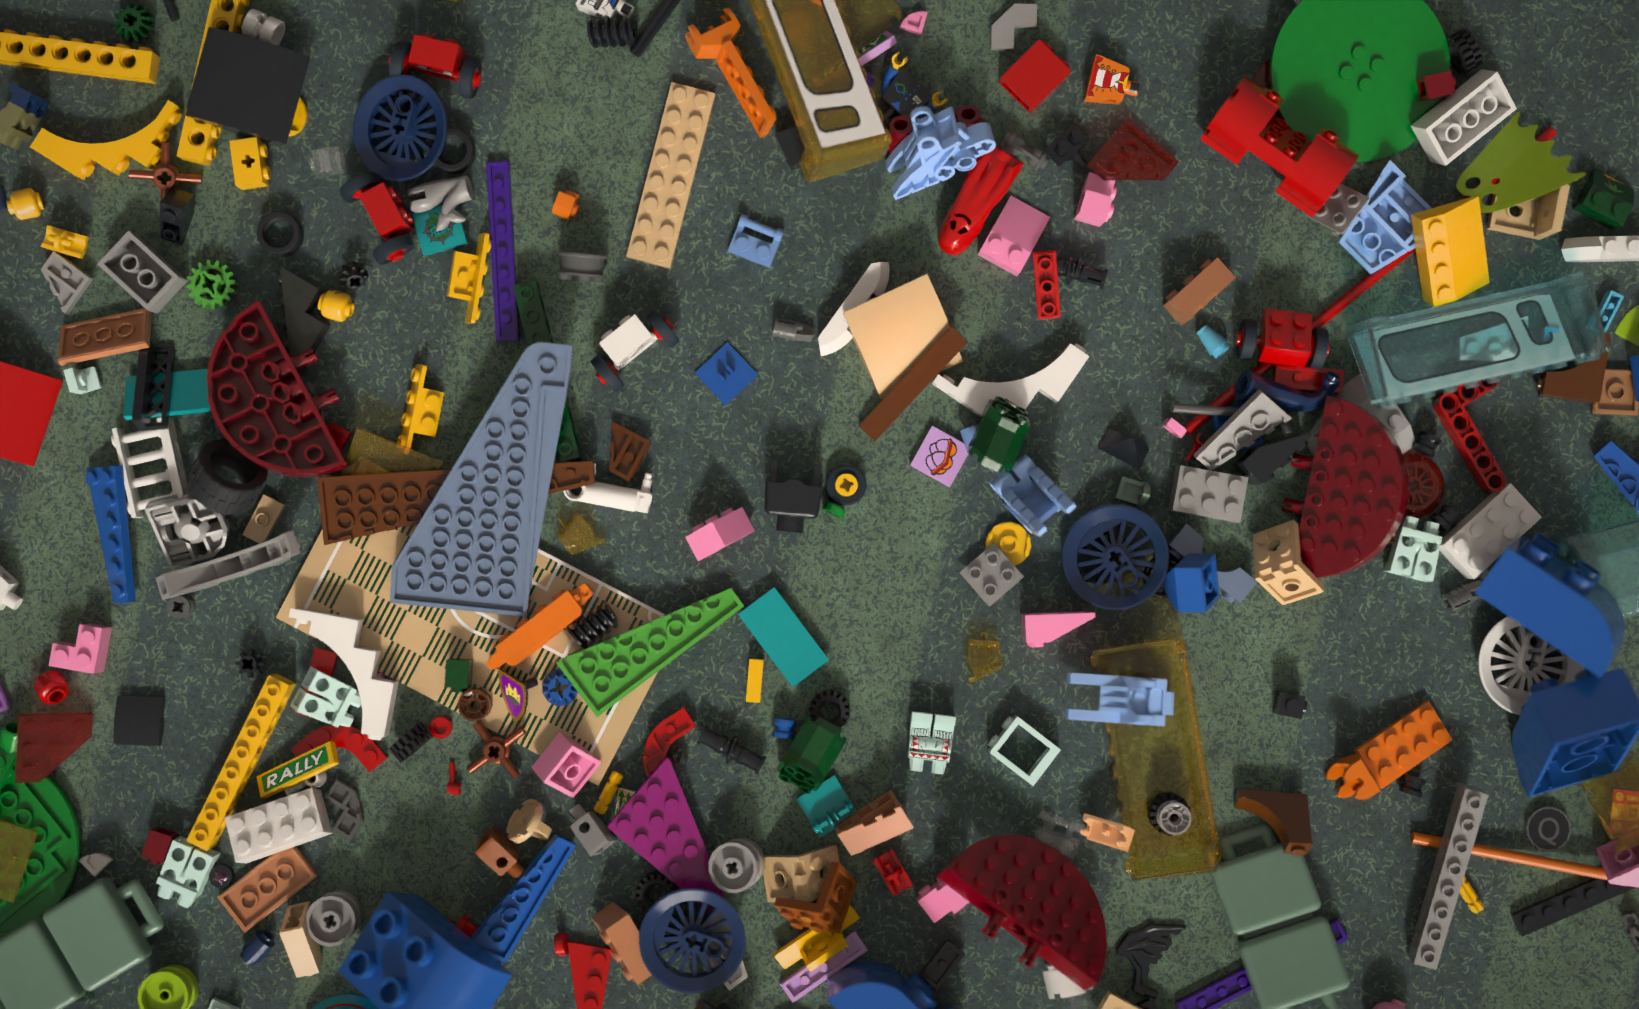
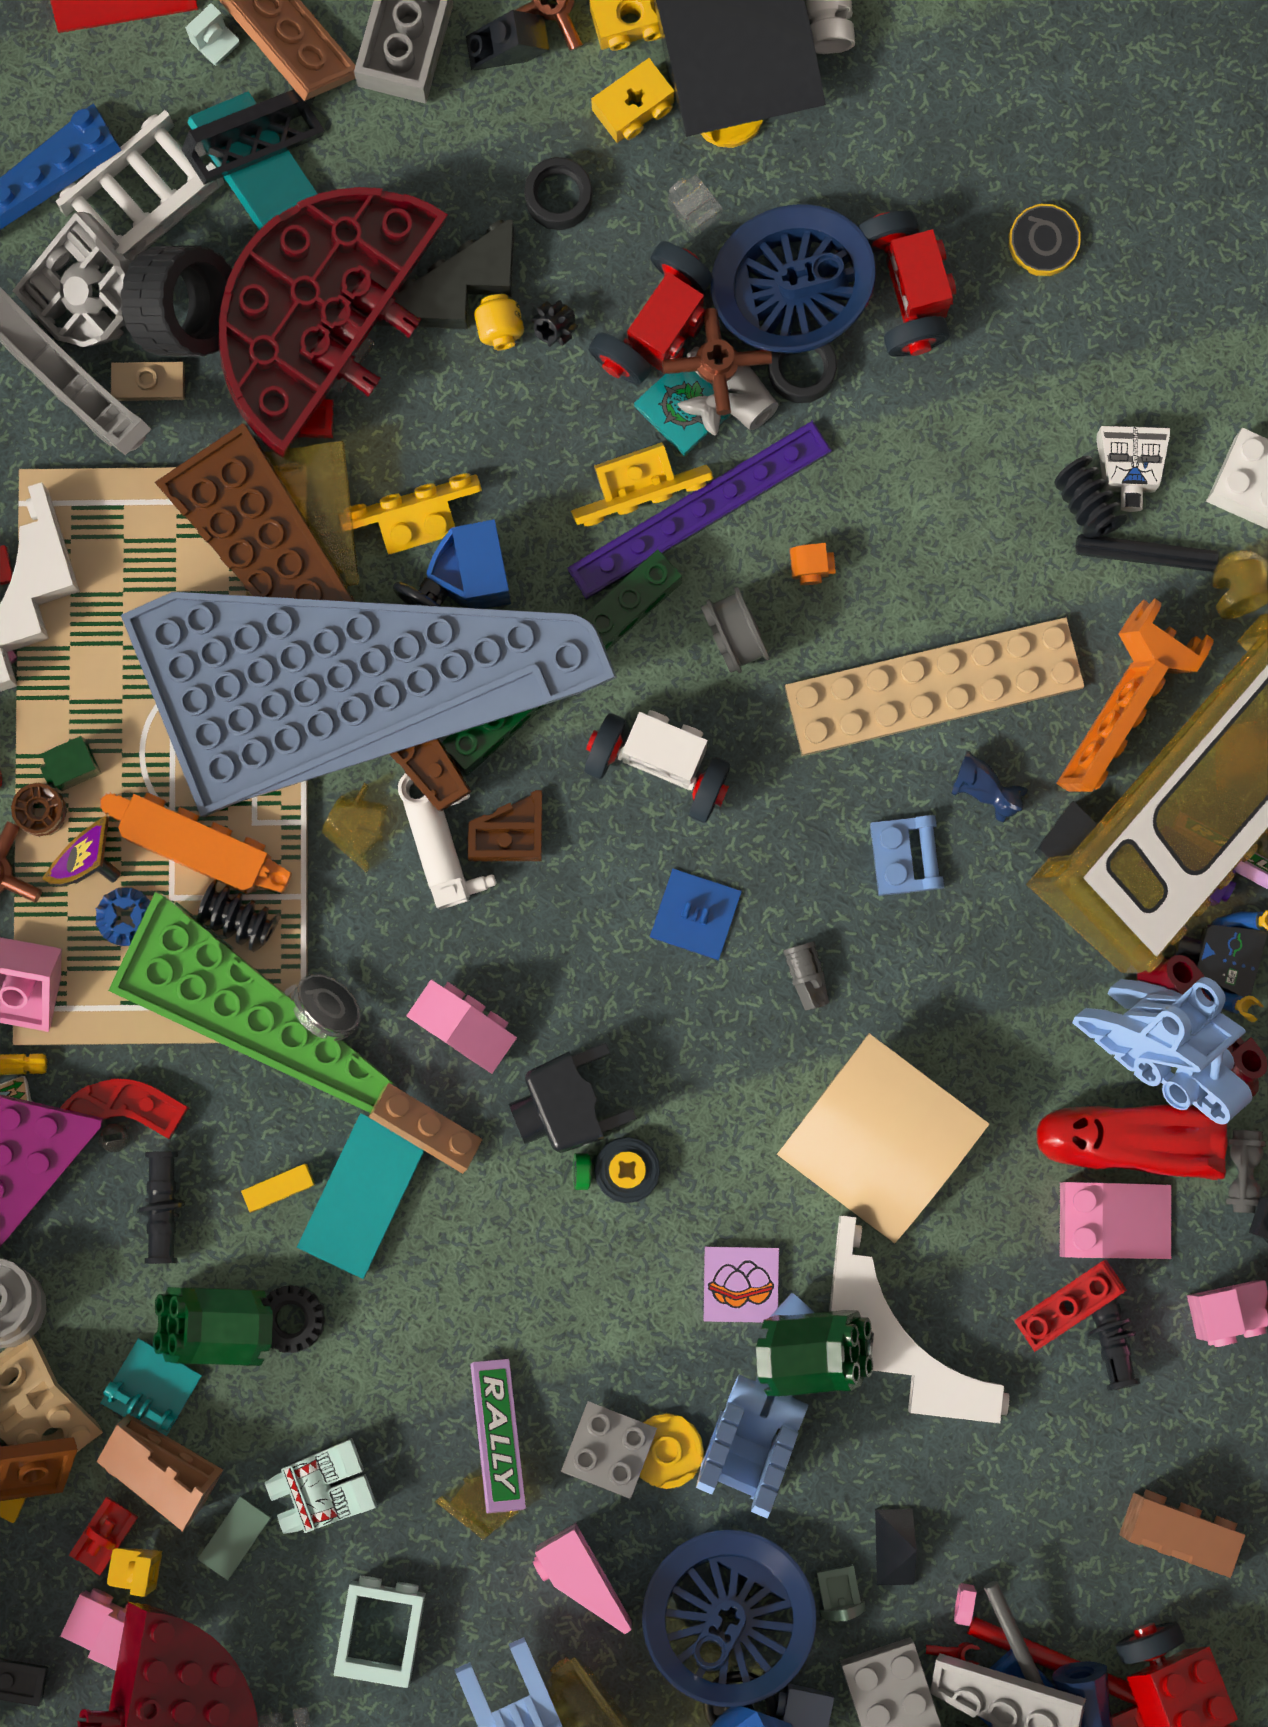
camera: 65 degrees right, 5 degrees down
(202, 288) = (444, 125): bright green gear -> none
(422, 203) = (715, 373): none -> copper bar
(466, 398) = (465, 568): none -> blue piece
(669, 602) = (325, 1007): none -> tile
(737, 178) = (982, 783): none -> dark blue animal
(765, 583) = (425, 1128): none -> medium nougat plate
(784, 728) = (231, 1266): blue wheel -> none
(871, 283) = (936, 1052): white brick -> none
(913, 383) = (824, 1188): reddish brown tile -> none
(920, 865) = (134, 1570): none -> yellow slope
(931, 802) = (234, 1537): none -> sand green tile
(952, 631) = (497, 1436): none -> tile
(1213, 342) = (1120, 1594): medium azure cone -> none

